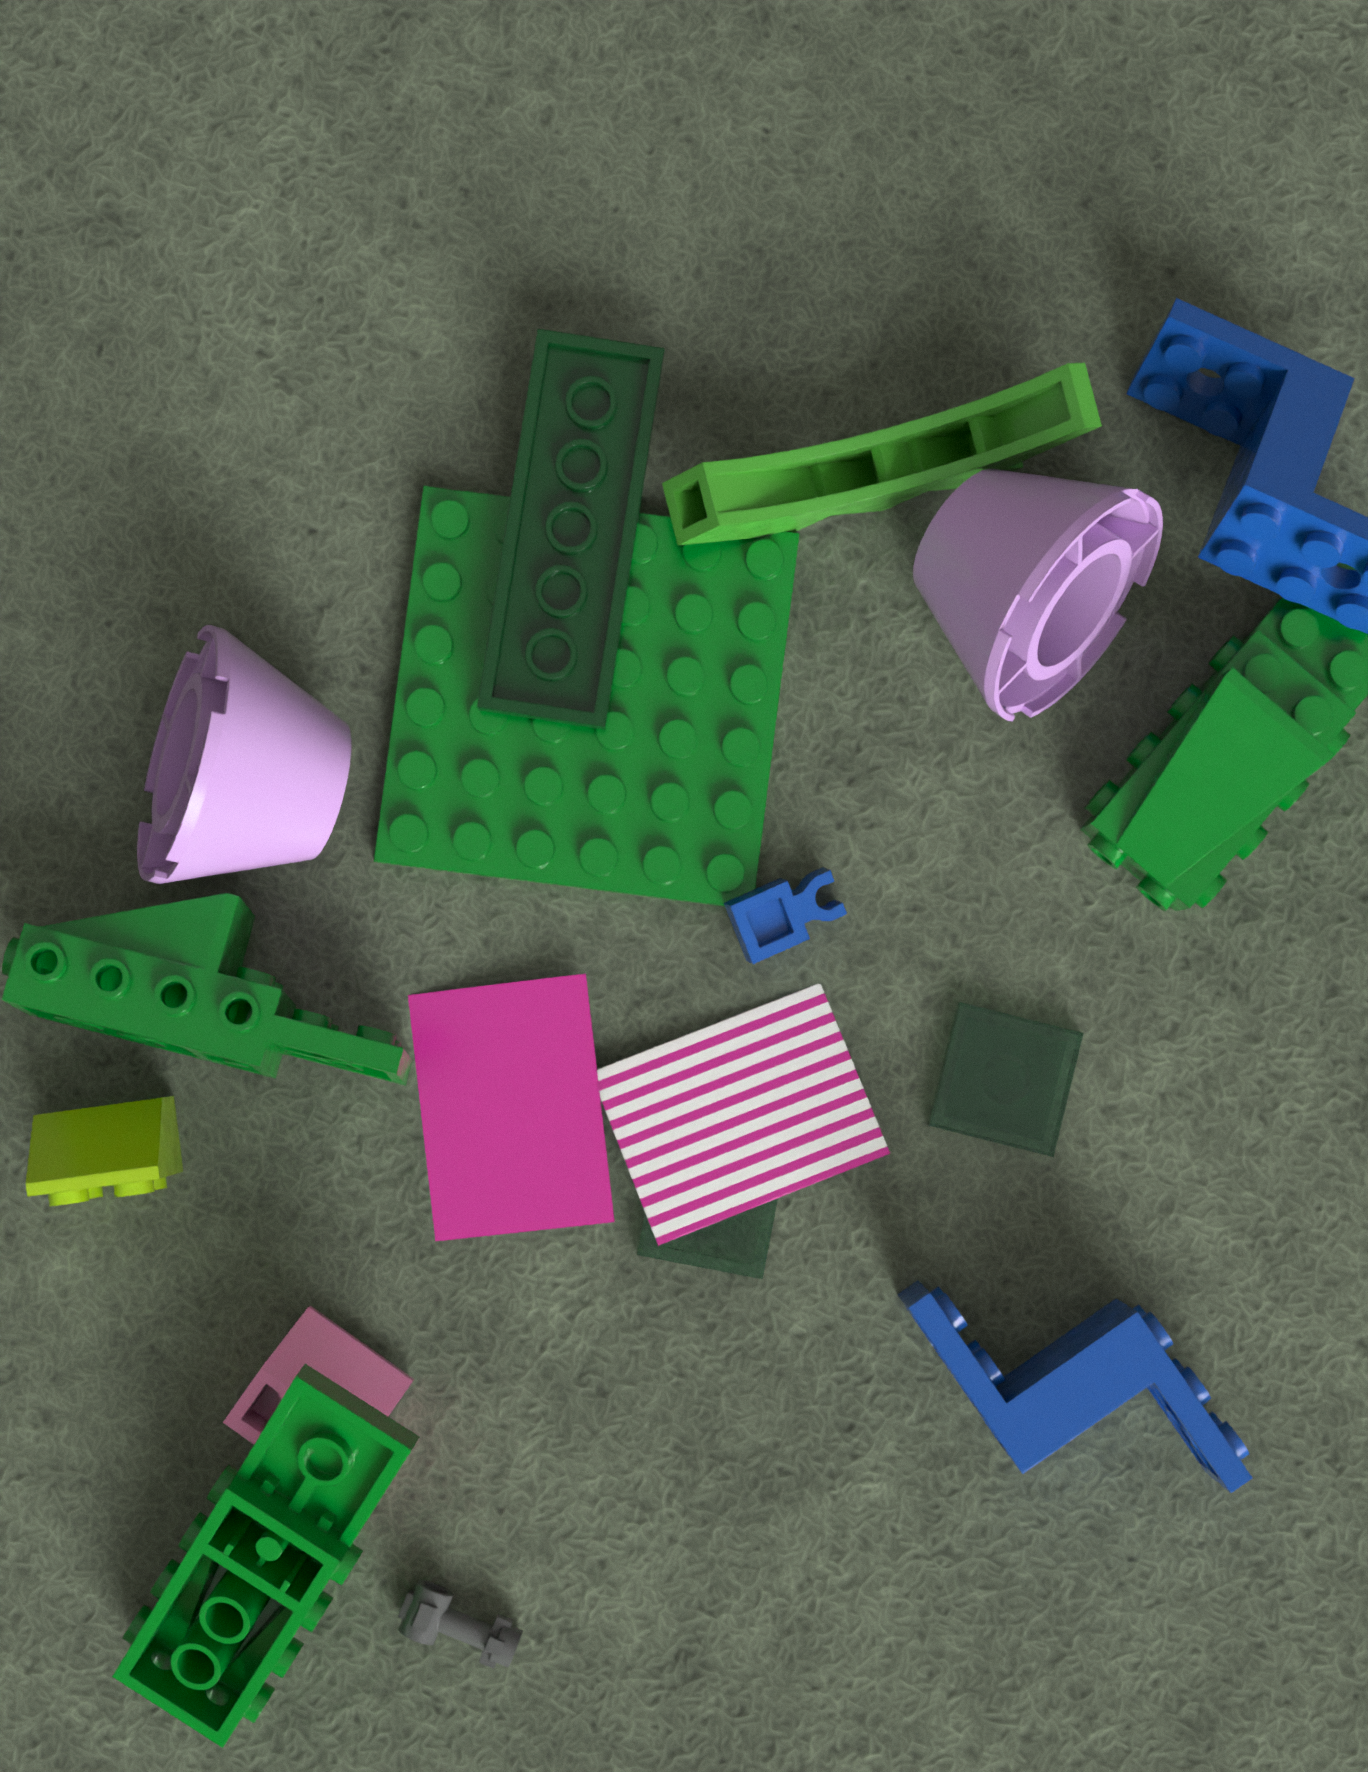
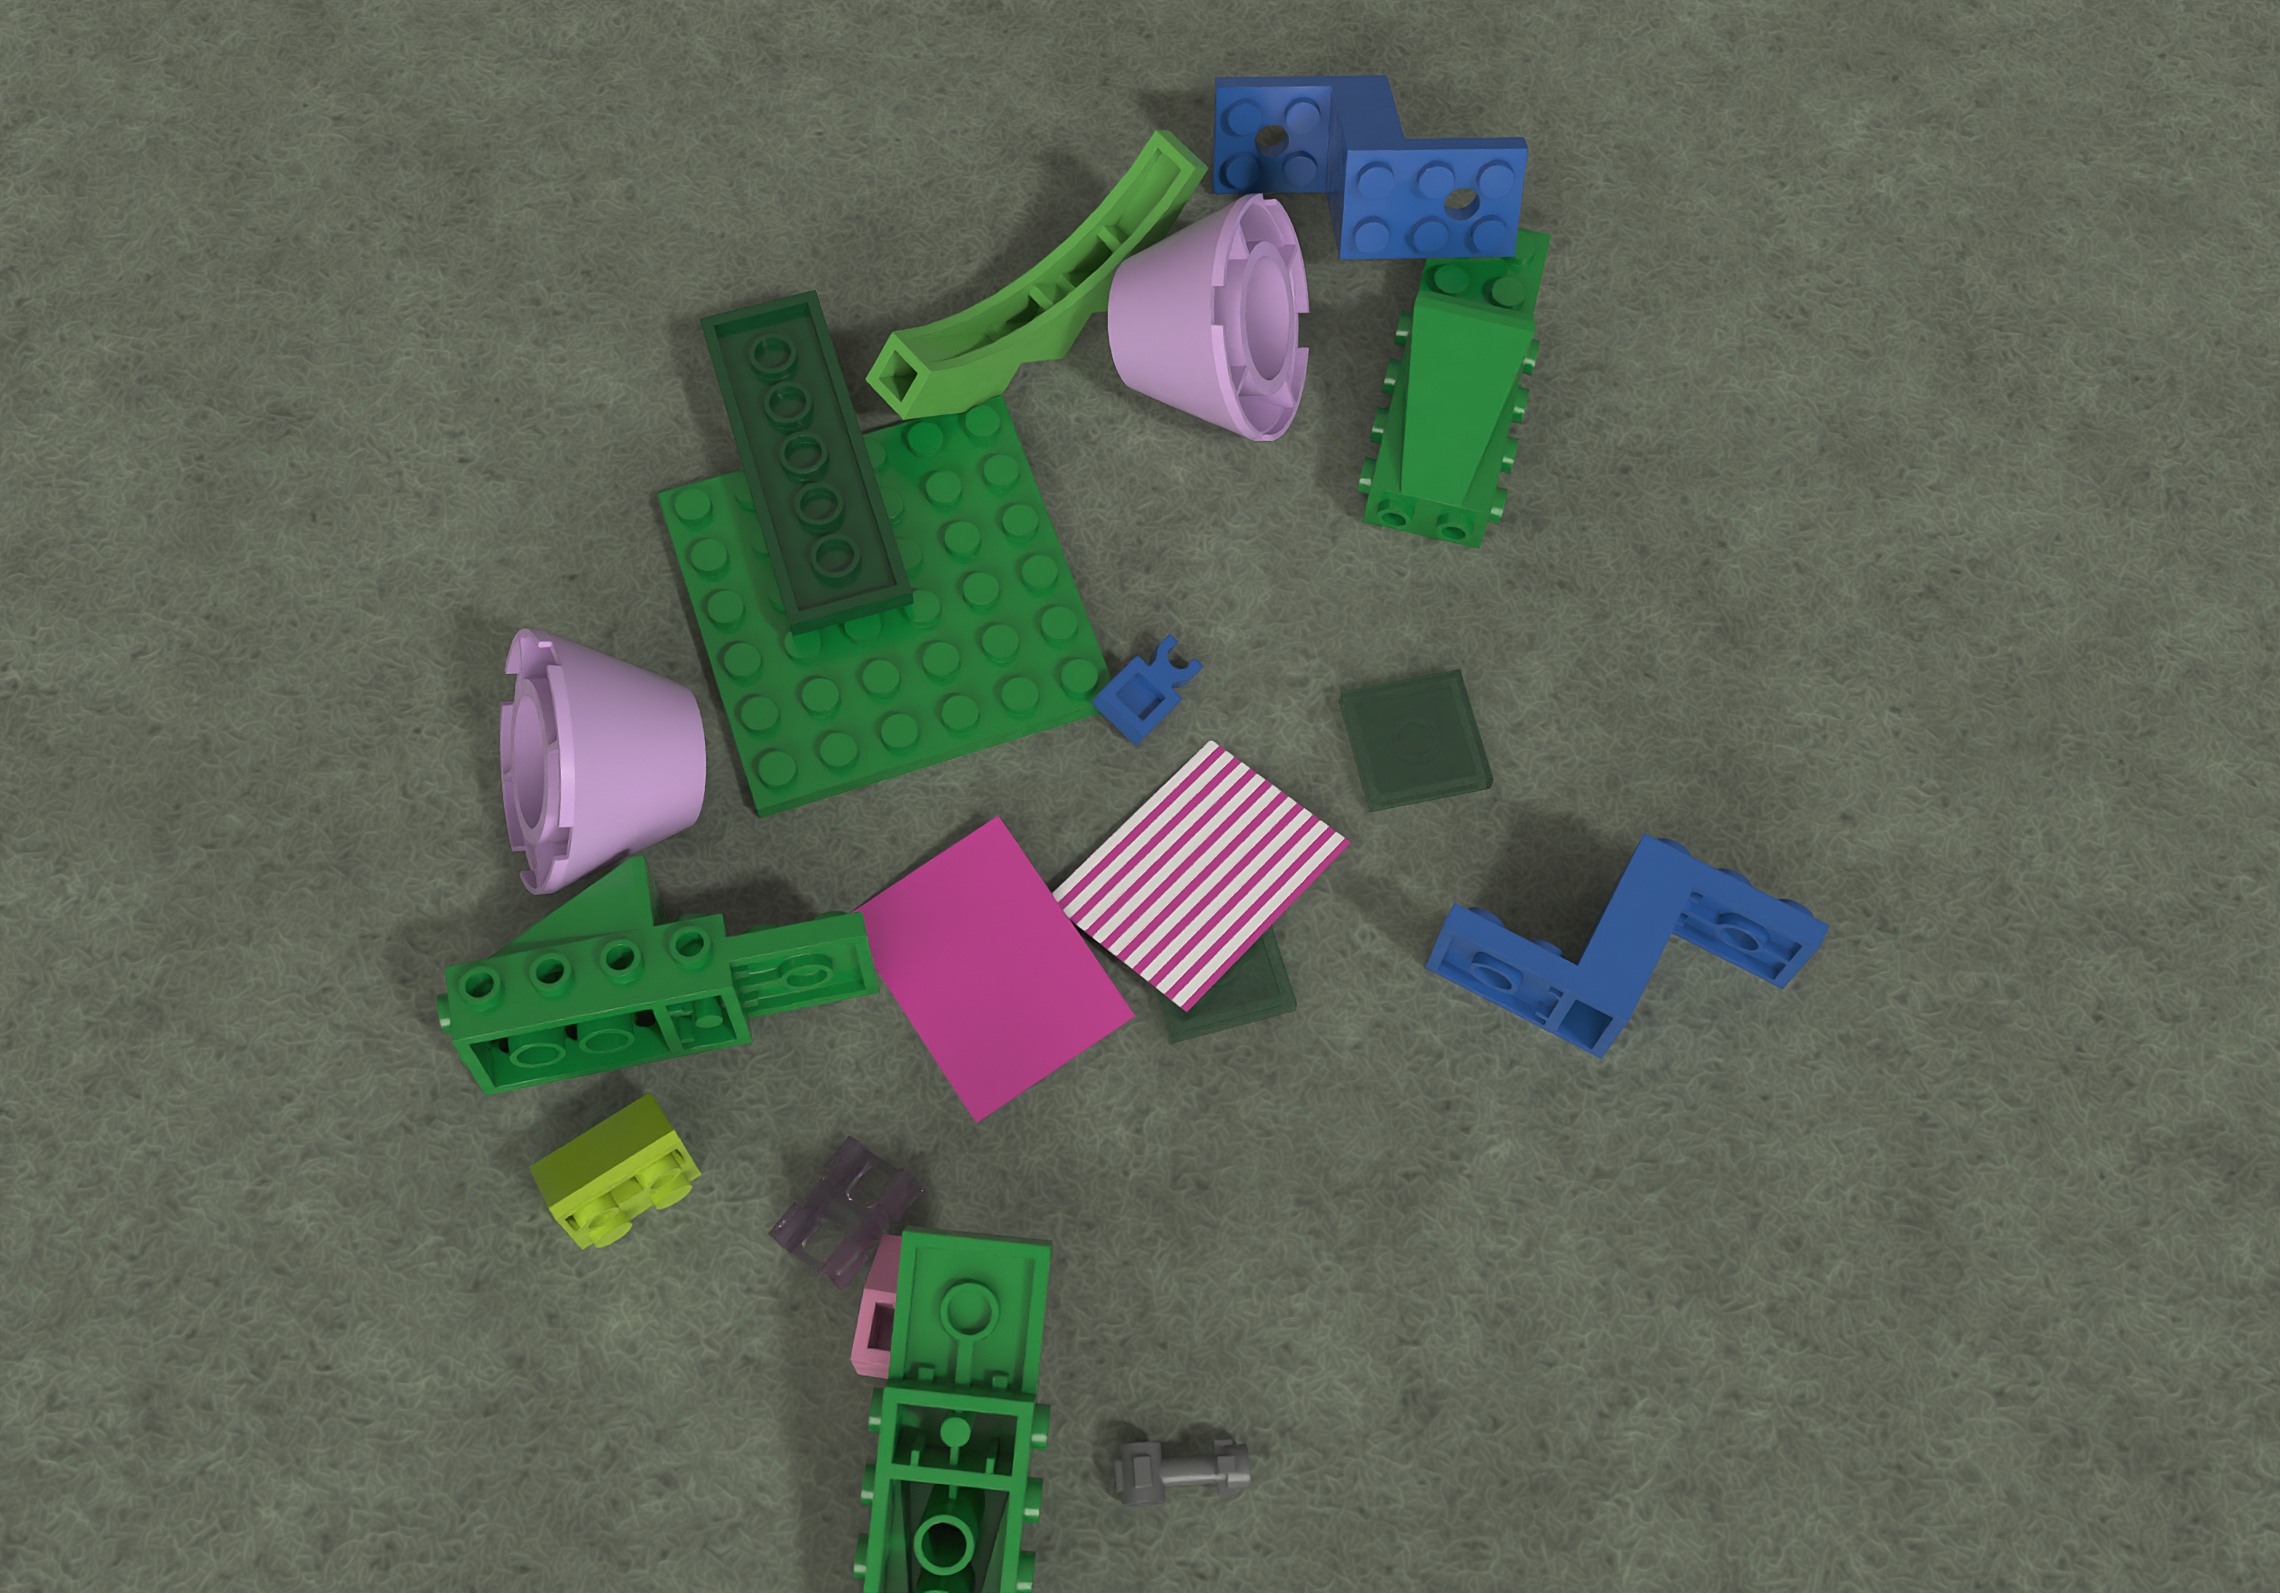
camera: 25 degrees left, 20 degrees down
(278, 1257) = (831, 1202): none -> piece

